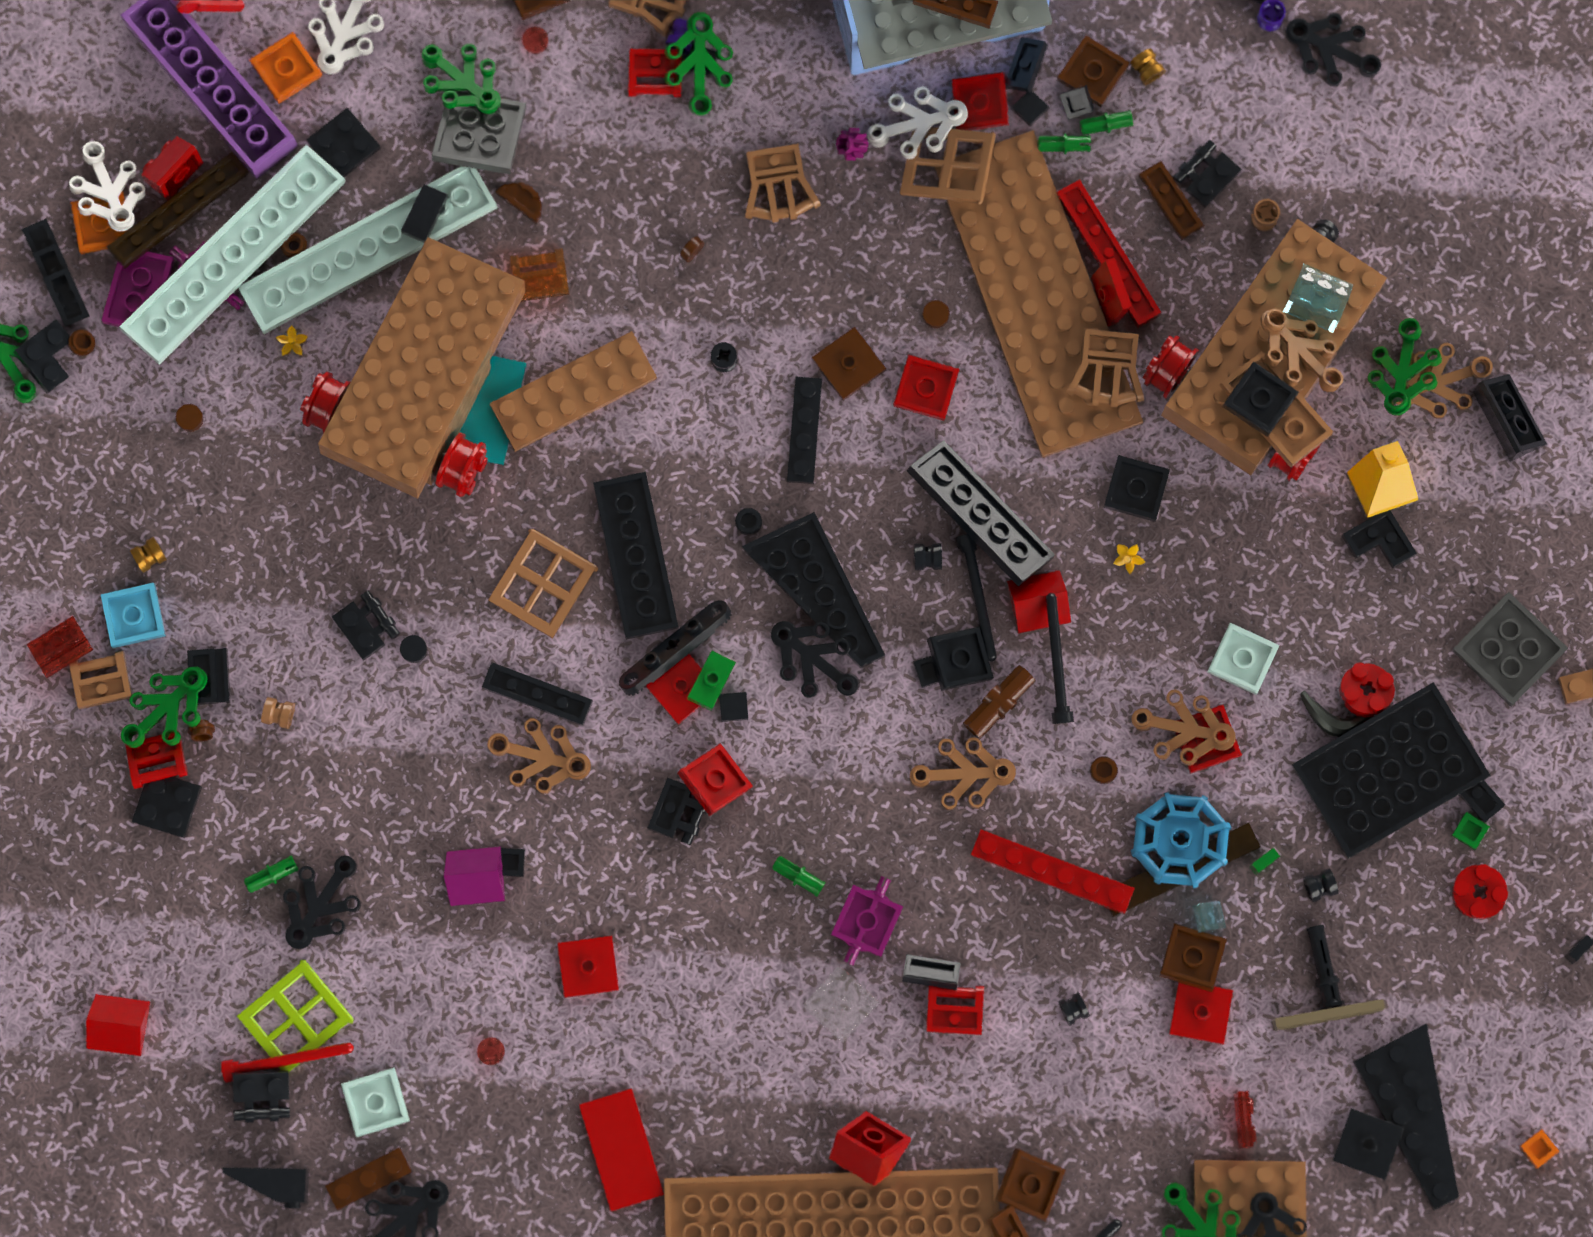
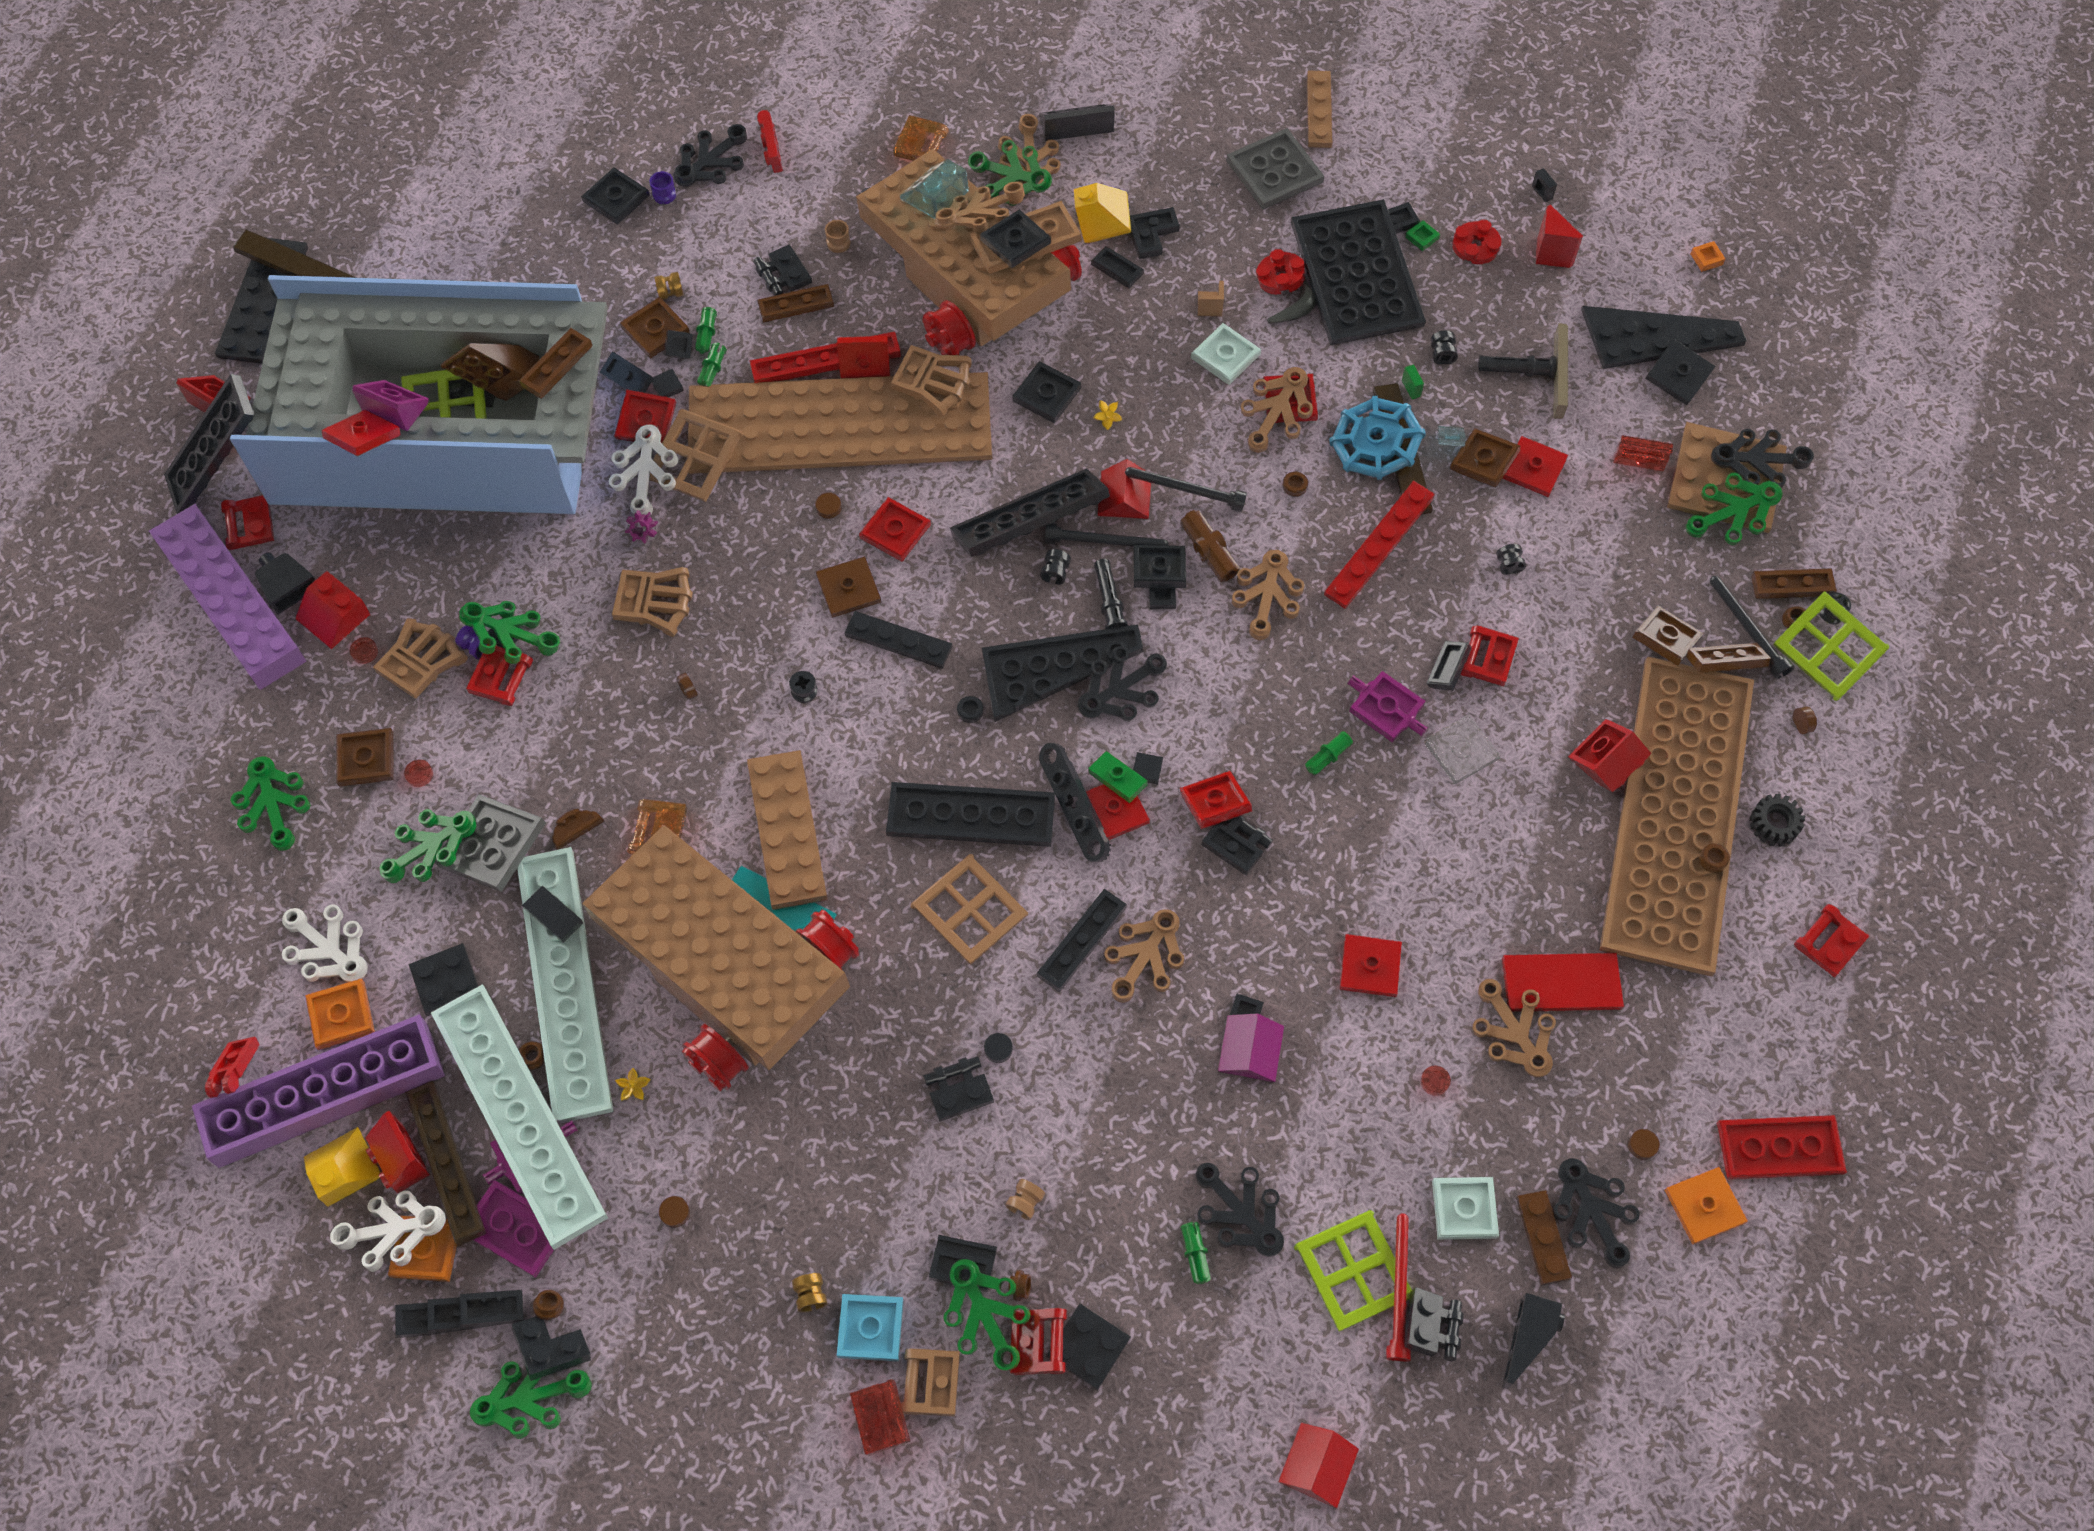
camera: 75 degrees left, 15 degrees down
(151, 123) = (340, 1167): none -> yellow slope
(558, 1116) = (1517, 1031): none -> medium nougat plant
(901, 629) = (1111, 605): none -> black pin
(1305, 625) = (1211, 302): none -> medium nougat panel
(1323, 516) = (1117, 267): none -> black tile
(1370, 103) = (769, 141): none -> red hinge
(1424, 251) = (914, 136): none -> clear orange plate
(1494, 972) = (1557, 240): none -> red slope

